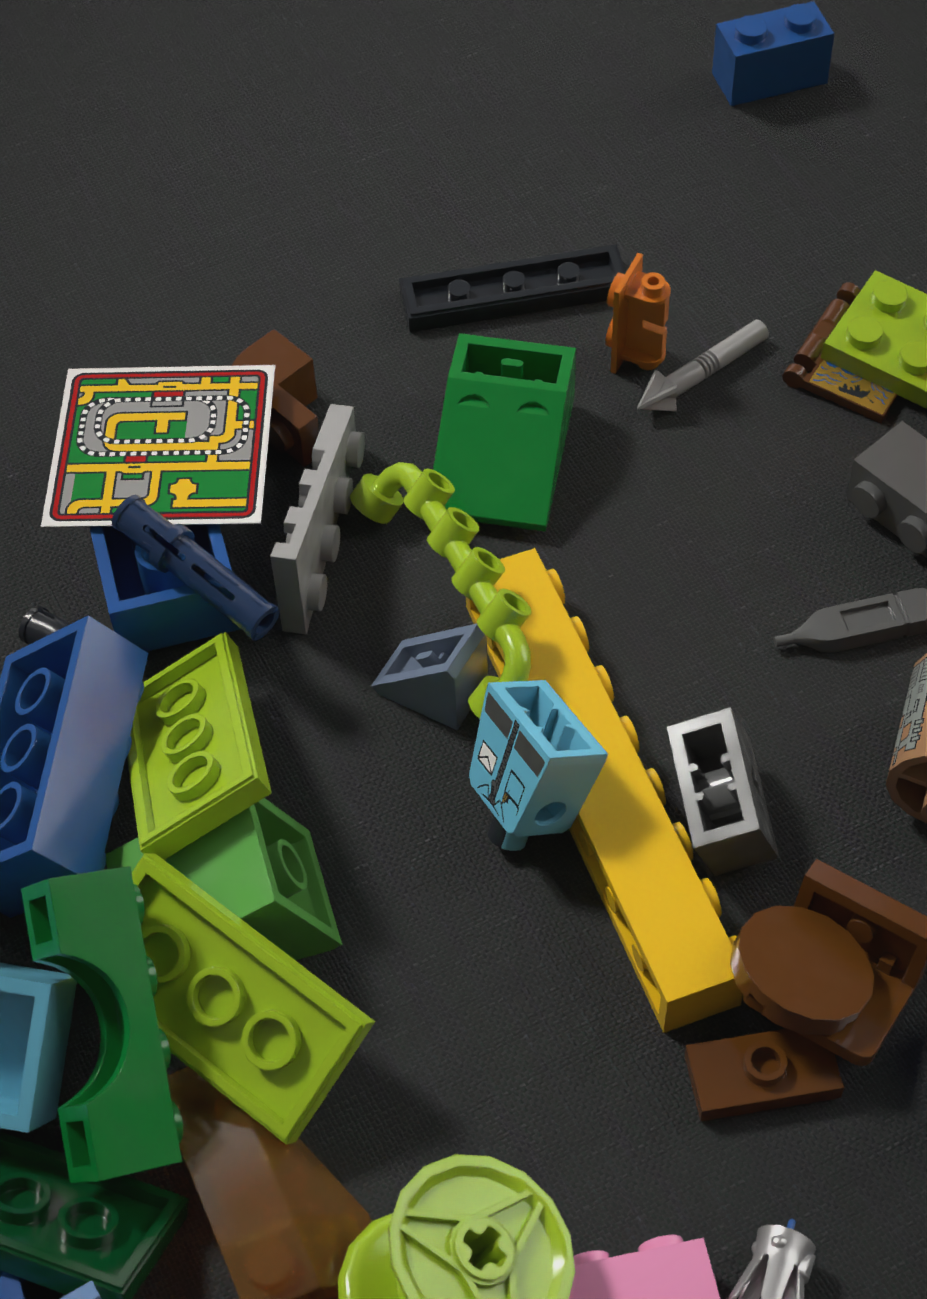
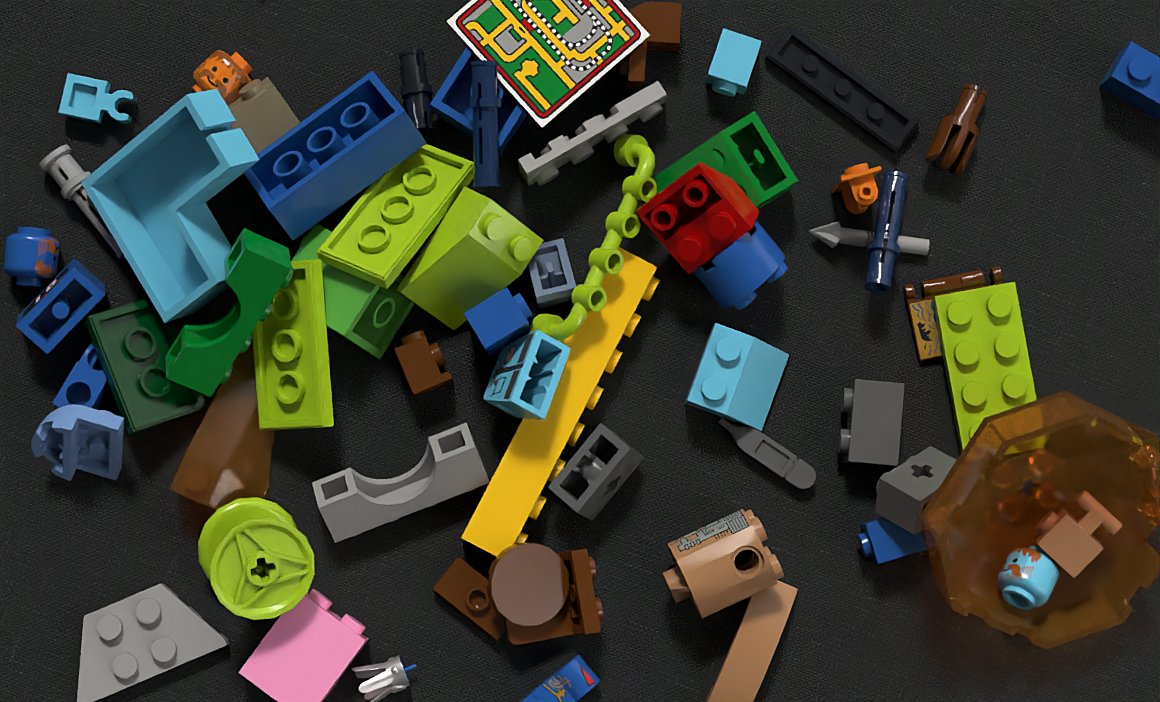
camera: 40 degrees right, 30 degrees up
(327, 720) = (468, 258): none -> lime slope
(384, 344) = (732, 63): none -> medium azure brick
(398, 889) = (422, 363): none -> reddish brown brick
(434, 748) = (499, 321): none -> blue brick
(520, 449) = (699, 215): none -> red slope
(558, 952) = (360, 503): none -> light grey arch
(613, 474) = (742, 268): none -> blue brick
(665, 221) = (958, 132): none -> reddish brown arm
(726, 344) = (880, 273): none -> dark blue pin
(731, 584) = (737, 377): none -> medium azure slope

